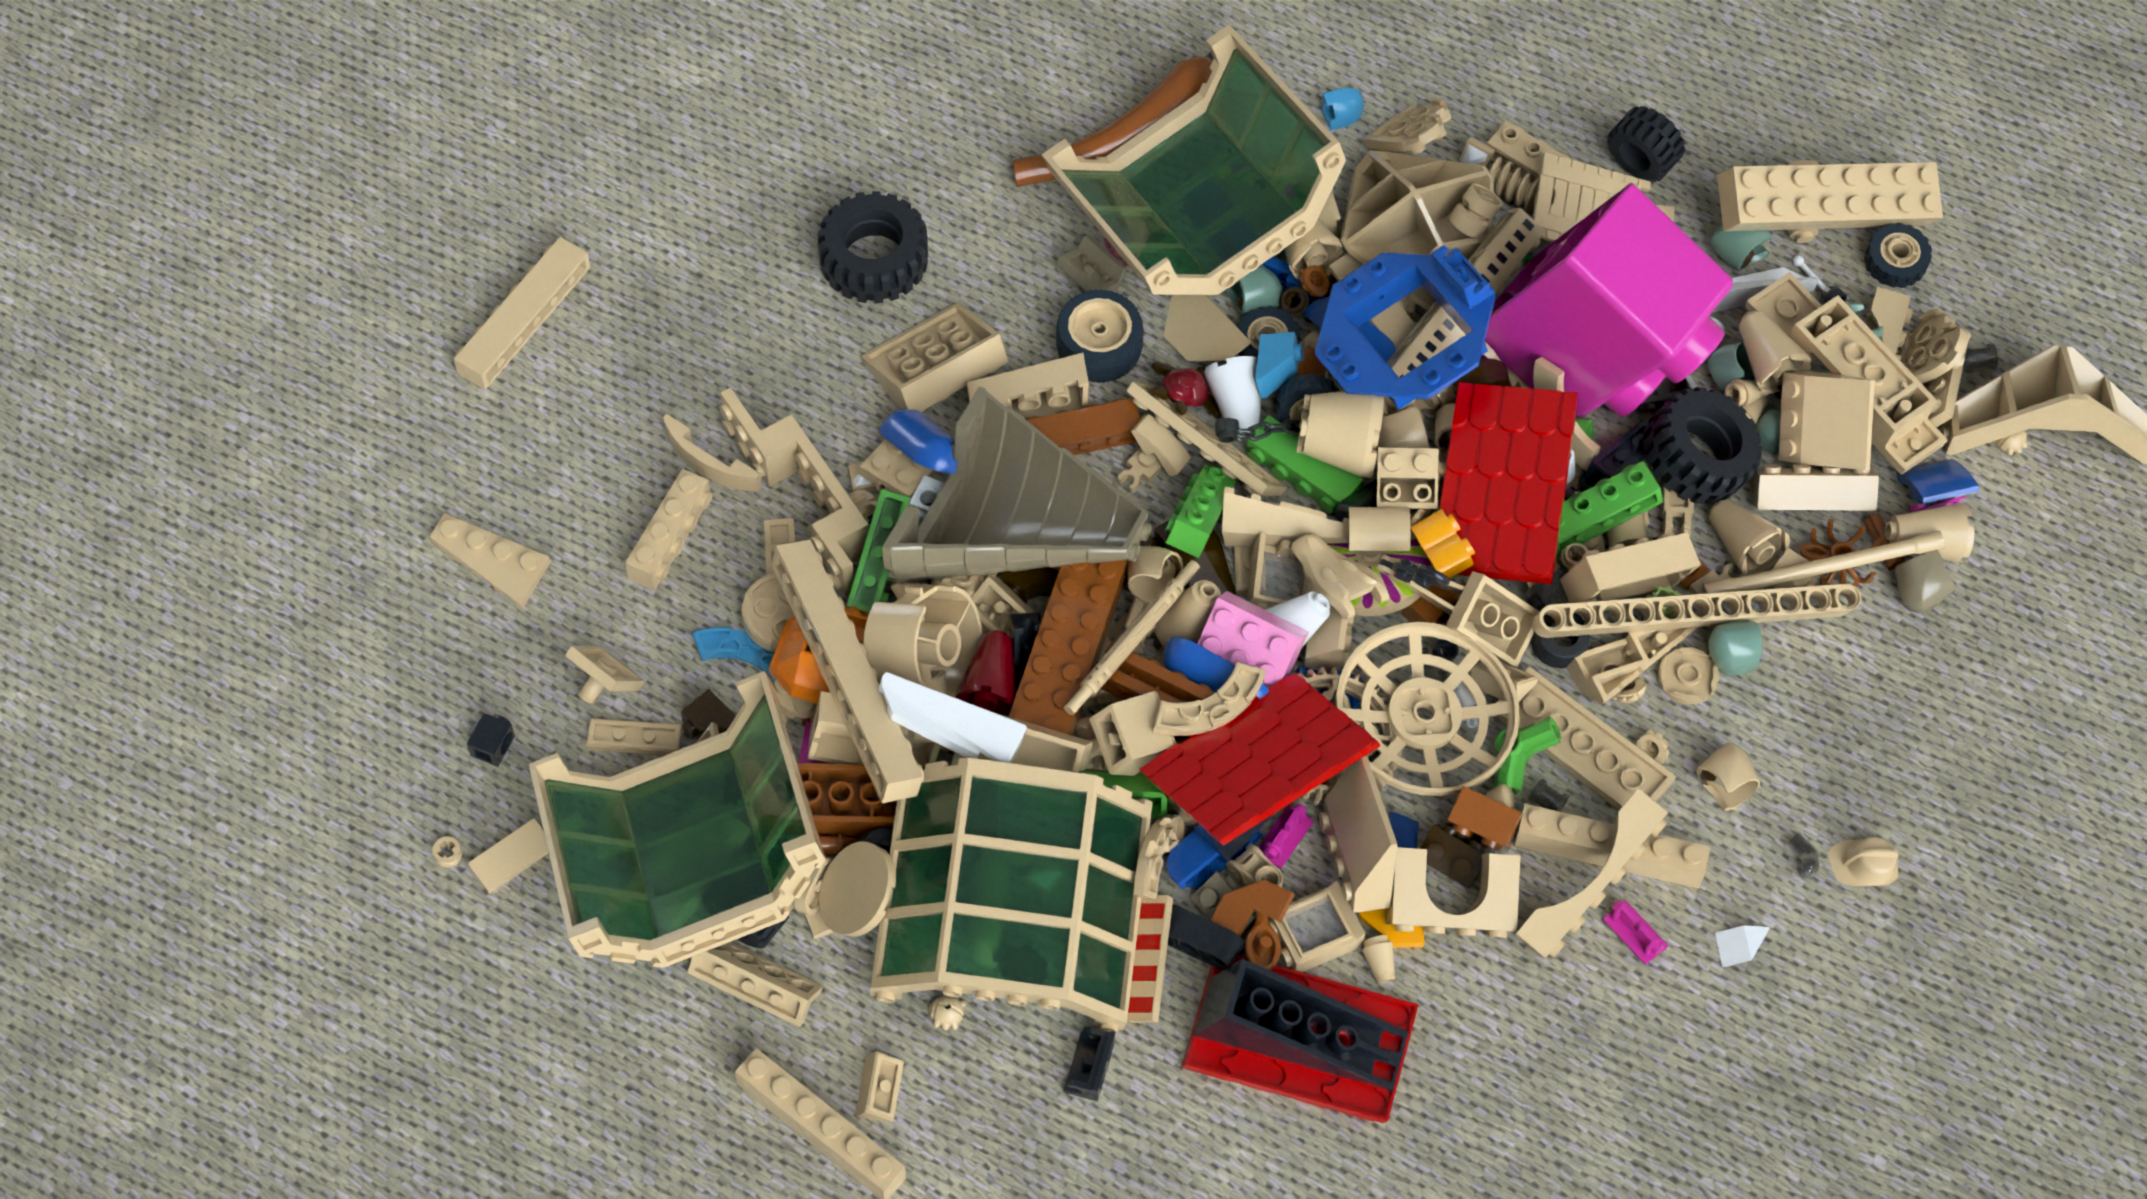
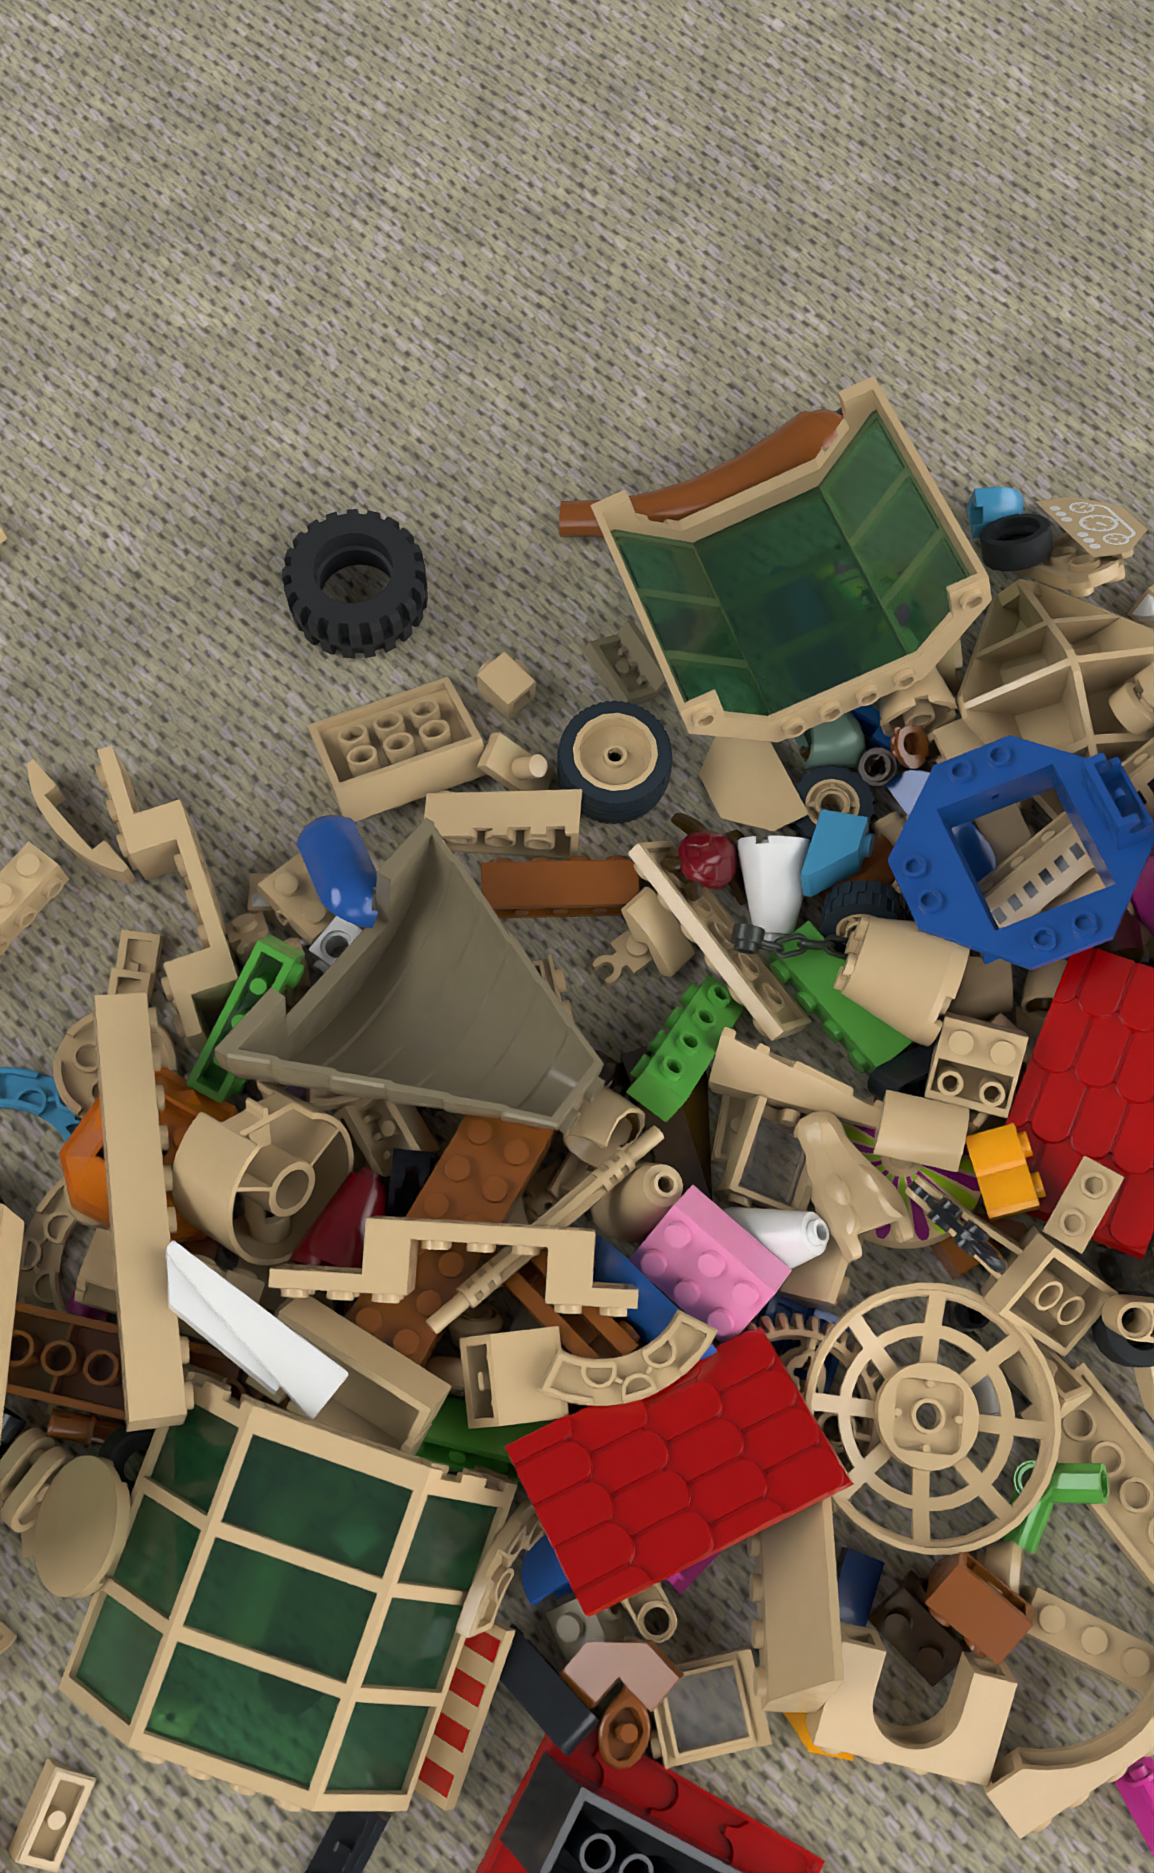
camera: 10 degrees right, 10 degrees up
(1004, 298) = (506, 684): none -> tan brick
(1024, 350) = (514, 765): none -> tan tile
(1034, 645) = (393, 1251): none -> tan bracket
(1362, 126) = (1016, 542): none -> black tyre
(1380, 958) = (786, 1772): tan cone -> none
(1418, 102) = (1095, 525): none -> tan sticker
(1501, 549) = (1083, 1204): none -> tan brick
(1547, 797) = (1071, 1570): clear smoke bush -> none

